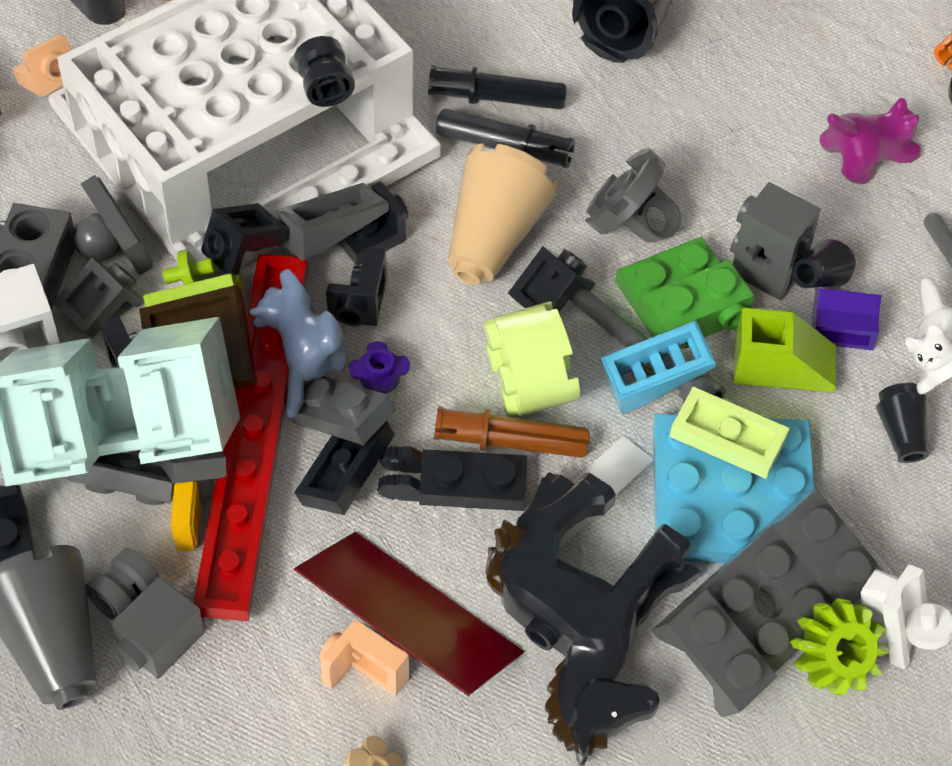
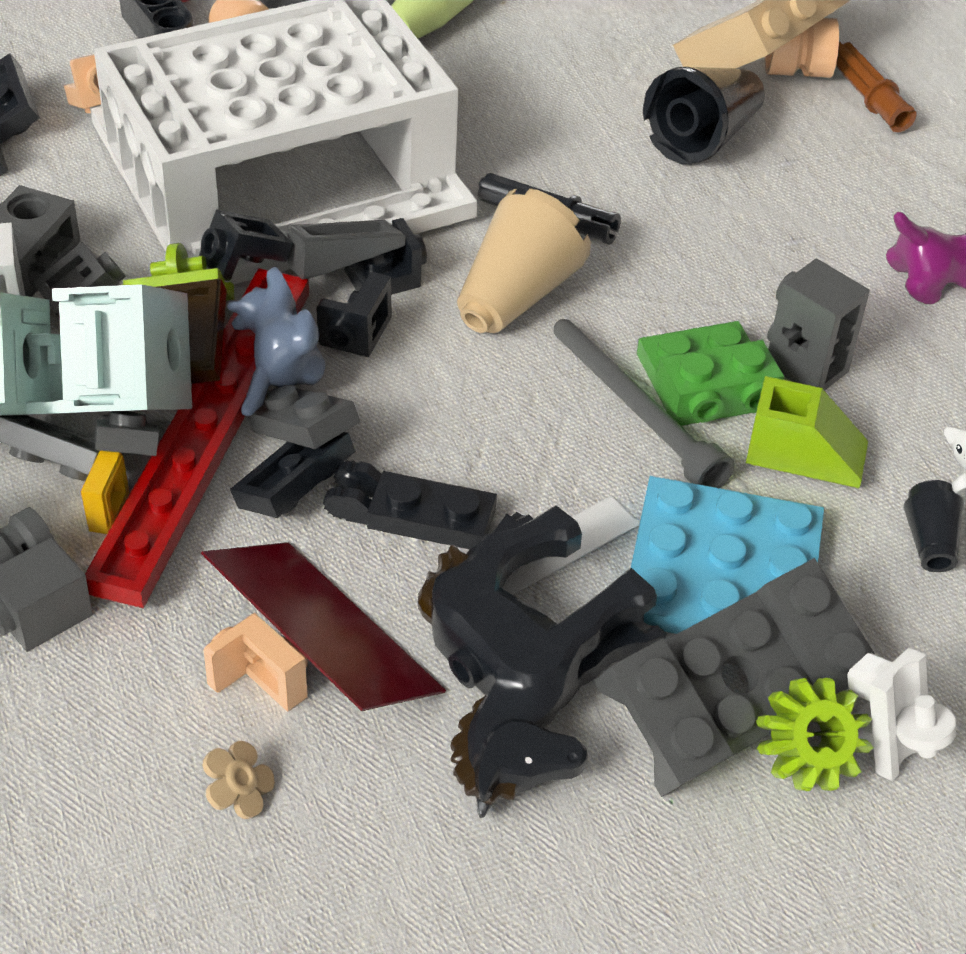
camera: 10 degrees right, 10 degrees down
(103, 233) = (112, 228): dark grey tile -> none
(324, 71) = (357, 86): black wheel -> none
(383, 379) = (361, 388): dark purple plate -> none
(495, 88) = (550, 165): black axle -> none
(511, 432) = (484, 470): dark orange axle -> none
(531, 359) = (521, 397): yellowish green brick -> none
(551, 279) = (562, 337): black bracket -> none
(629, 198) = (669, 271): dark grey tile -> none
(635, 356) = (633, 418): medium azure slope -> none
(729, 432) = (727, 497): yellowish green plate -> none
(825, 265) = (870, 363): black cone -> none
(847, 317) = (887, 416): dark purple piece -> none

